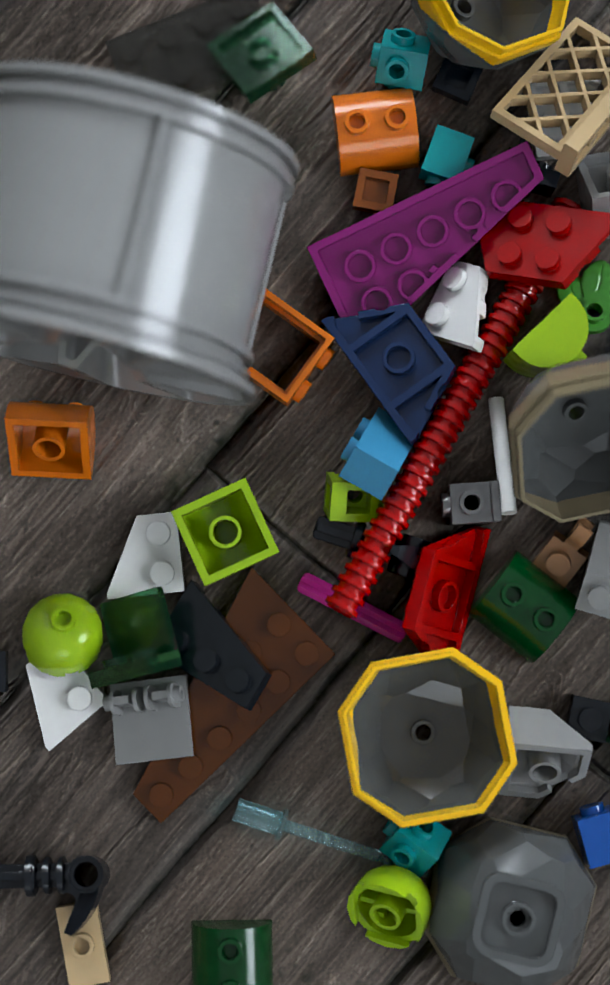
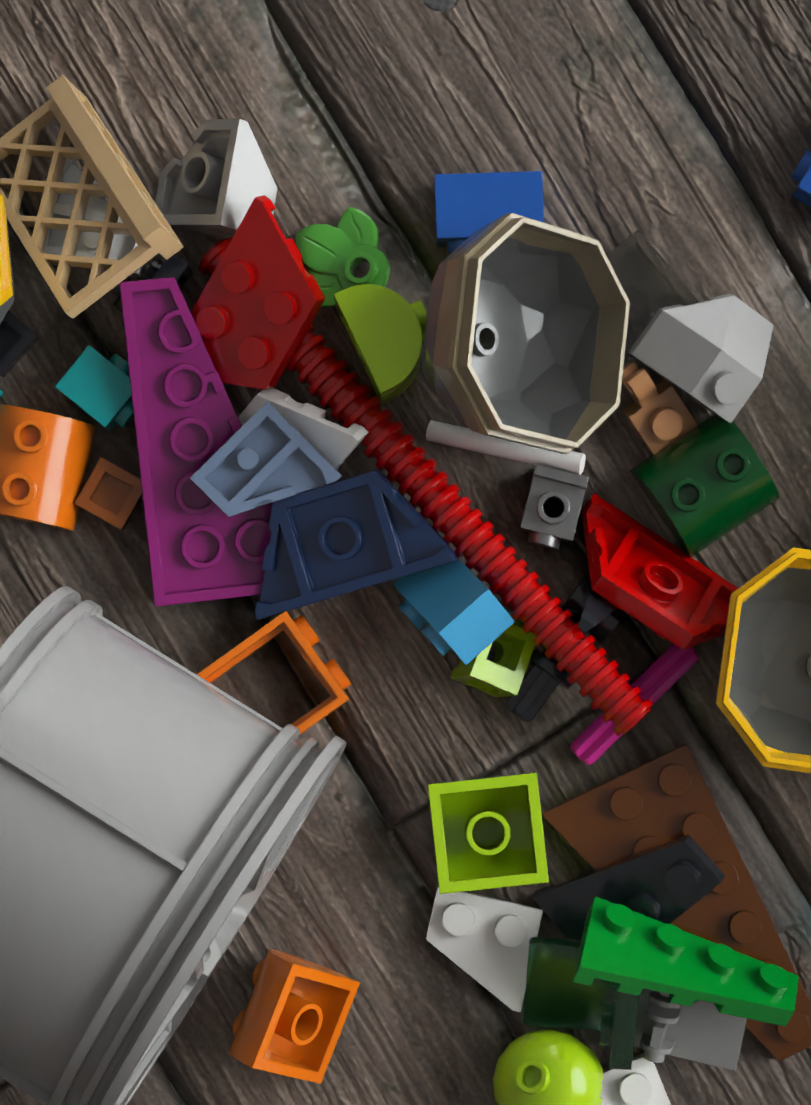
camera: 70 degrees left, 0 degrees up
(177, 684) = (663, 958): none -> green wing
(432, 285) = (262, 465): none -> sand blue wing

